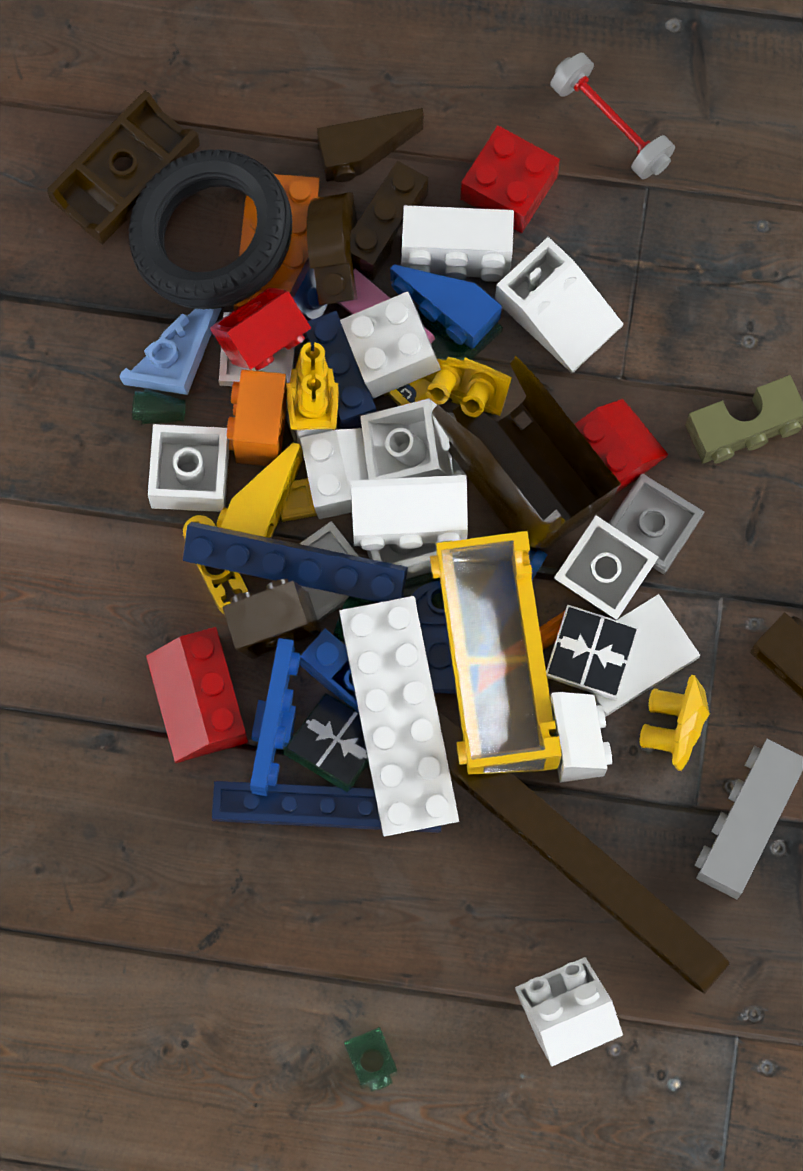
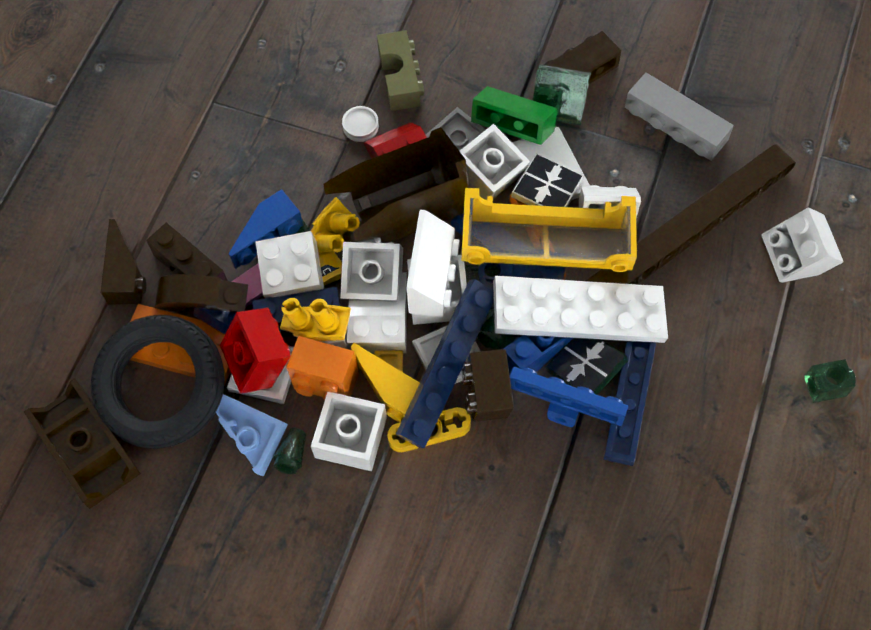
camera: 75 degrees left, 10 degrees down
(196, 695) = (533, 458): red slope -> none
(458, 241) = (221, 212): white brick -> none
(510, 177) = (182, 177): red brick -> none
(557, 305) = (285, 163): white slope -> none
(573, 75) = (194, 88): light grey axle -> none
(651, 388) = (360, 123): none -> white piece
(691, 712) = (599, 134): yellow connector -> none
(695, 587) = (514, 115): none -> green brick
(743, 645) = (563, 90): none -> clear green tile

